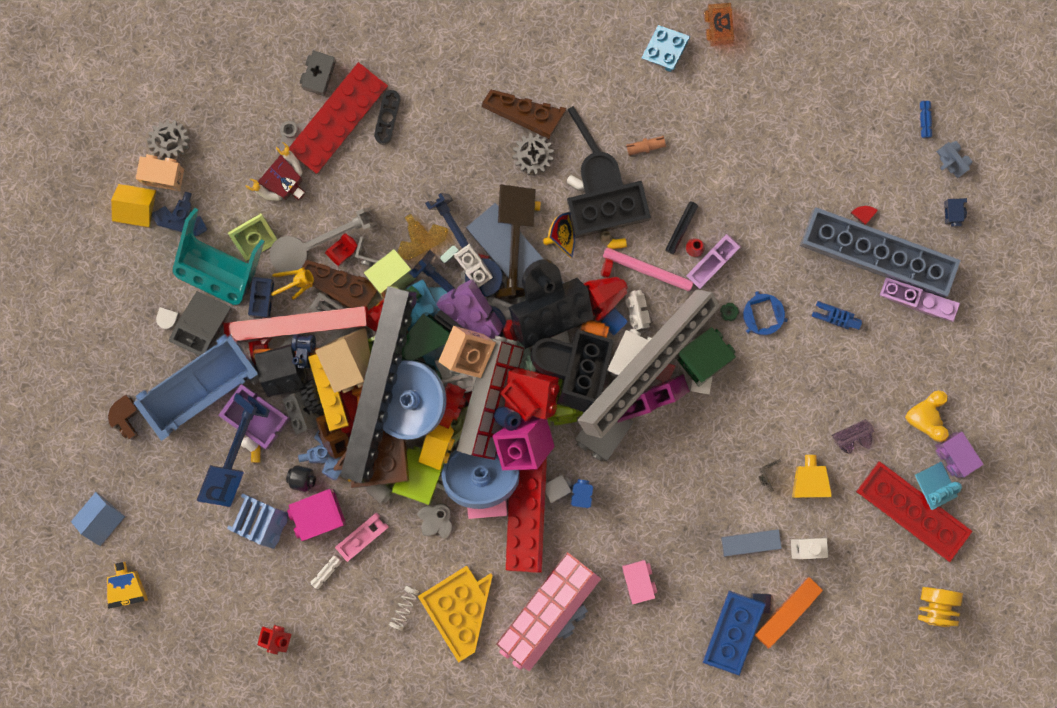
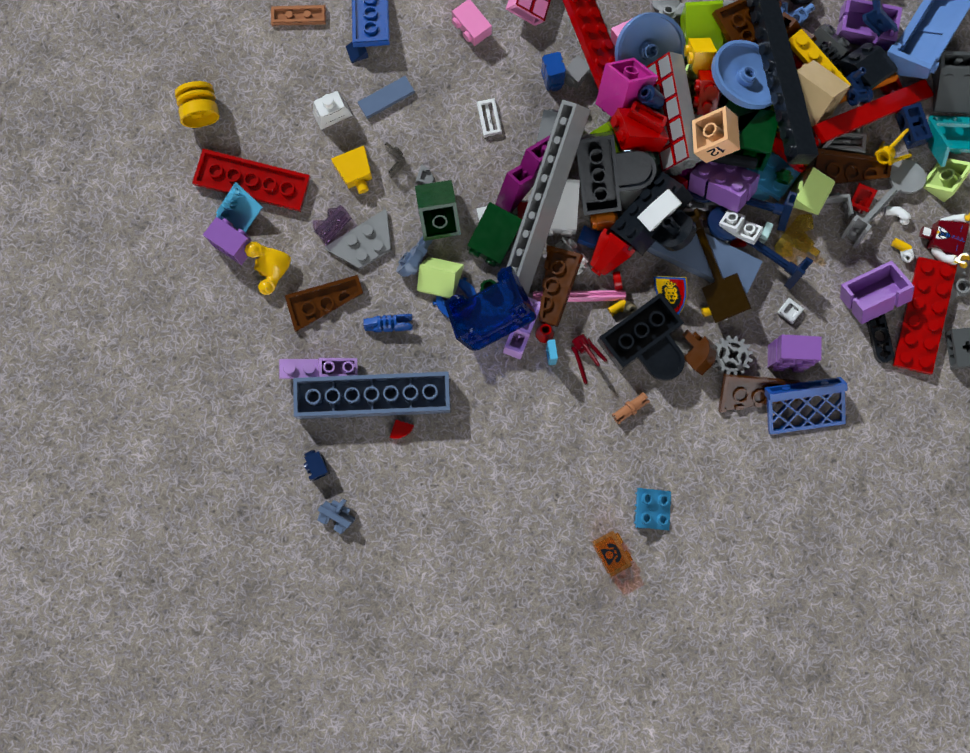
camera: 160 degrees right, 5 degrees down
(312, 224) = (899, 212): none -> white arm
(324, 186) = (905, 250): none -> arm
(376, 154) = (876, 292): none -> medium lavender piece
(458, 174) = (790, 311): none -> white tile
(478, 124) = (794, 352): none -> medium lavender piece
(483, 91) = (802, 390): none -> blue fence
(551, 302) = (659, 210): none -> white slope
(560, 165) = (702, 354): none -> reddish brown brick
(583, 129) = (692, 398): black bar -> none
(662, 289) = (560, 273): none -> reddish brown wing
(662, 463) = (492, 132): none -> white tile
(665, 221) = (584, 345): none -> dark red plant
(681, 227) = (564, 352): black axle -> none
(699, 223) = (551, 352): none -> medium azure tile
(742, 282) = (491, 312): none -> clear blue windscreen
(745, 445) = (424, 176): none -> light grey tile
(749, 404) = (437, 210): none -> dark green slope
(771, 340) = (439, 277): none -> yellowish green slope
(788, 613) = (329, 50): orange slope -> none
(792, 366) = (411, 260): none -> sand blue piece
(804, 665) = (298, 15): none -> nougat tile
(829, 405) = (363, 242): none -> light grey wing
(893, 365) = (318, 301): none -> reddish brown wing
(926, 119) = (377, 544): blue axle -> none

